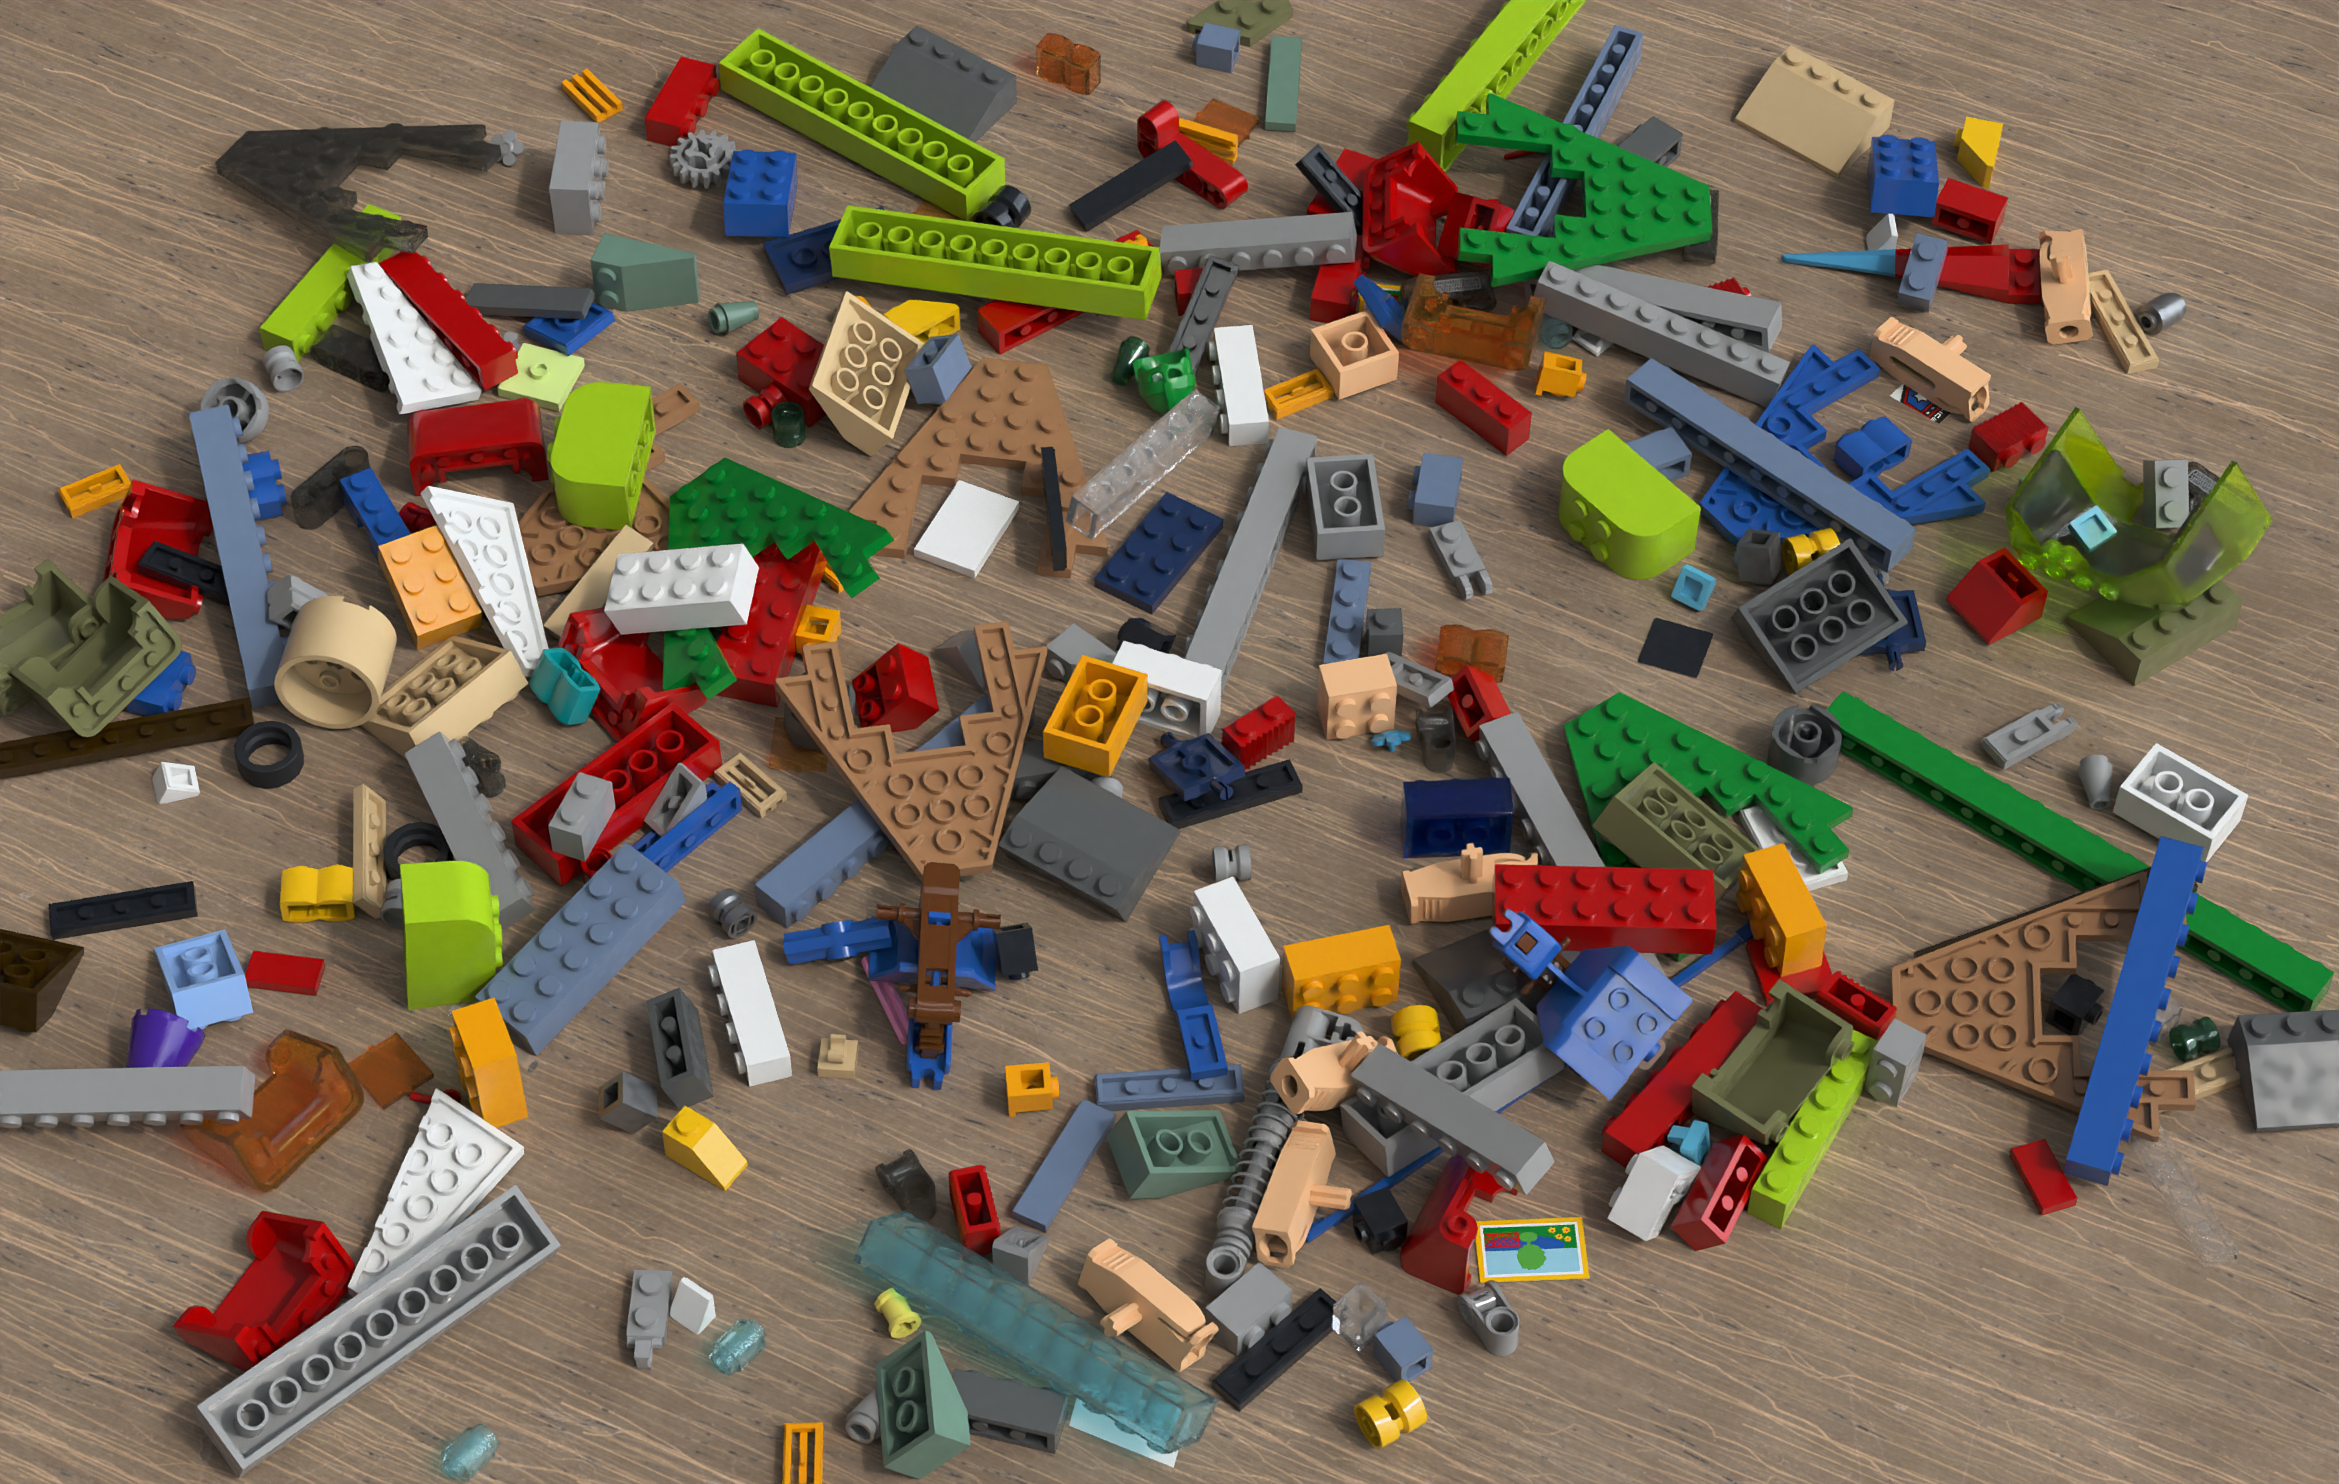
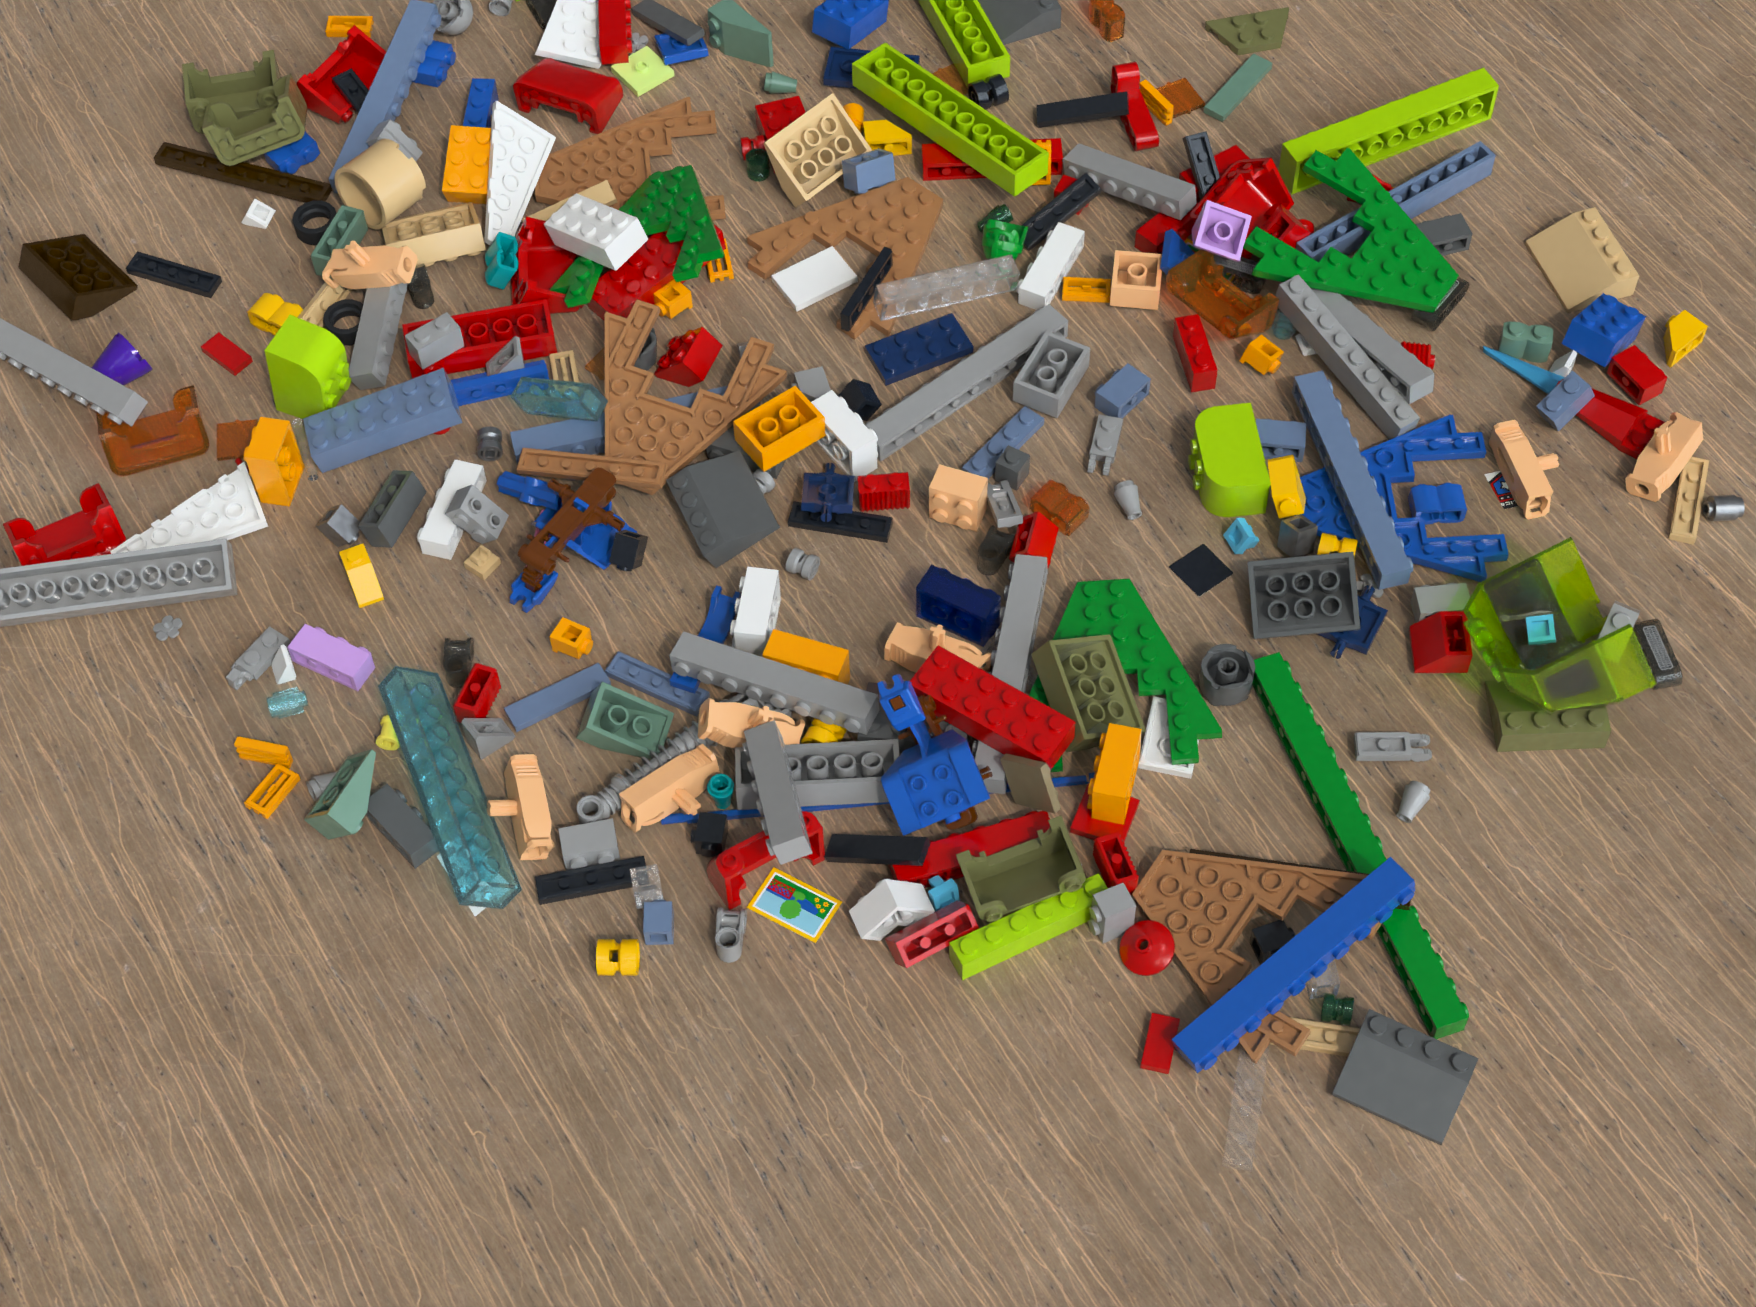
camera: 35 degrees right, 5 degrees up
(204, 980) = (178, 336): light blue slope -> none
(321, 493) = (456, 84): clear smoke beam -> none
(328, 762) = (345, 227): none -> sand green brick
(419, 767) = (369, 266): none -> light nougat piece
(469, 1453) = (98, 683): clear light blue brick -> none
(497, 1342) = (167, 627): none -> light grey plant
(602, 453) = (625, 130): lime brick -> none
(749, 1262) = (331, 657): none -> lavender brick
(758, 1419) = (263, 751): none -> light orange tile
(791, 812) = (559, 399): none -> clear light blue brick
(798, 1000) = (476, 514): none -> light grey brick
(898, 874) = (580, 466): none -> medium nougat tile
(1217, 47) = (1211, 46): sand blue brick -> none
(1329, 1007) = (774, 683): none -> light grey brick
(1356, 1164) = (721, 790): none -> teal cone
(1390, 738) = (965, 536): dark azure plant -> none
(1426, 249) = (1221, 230): none -> lavender slope
(1539, 606) = (1128, 498): none -> light grey cone
(1601, 1126) = (877, 849): none -> black tile
(1705, 966) = (1030, 783): none -> dark tan tile
(1719, 508) = (1286, 486): none -> yellow slope
(1827, 228) = (1526, 341): none -> sand green brick
(1957, 554) = (1432, 599): none -> light grey brick
(1957, 1100) = (1155, 956): none -> red dish
(2008, 437) = (1534, 537): red brick -> none
(2180, 801) = (1455, 846): white brick -> none

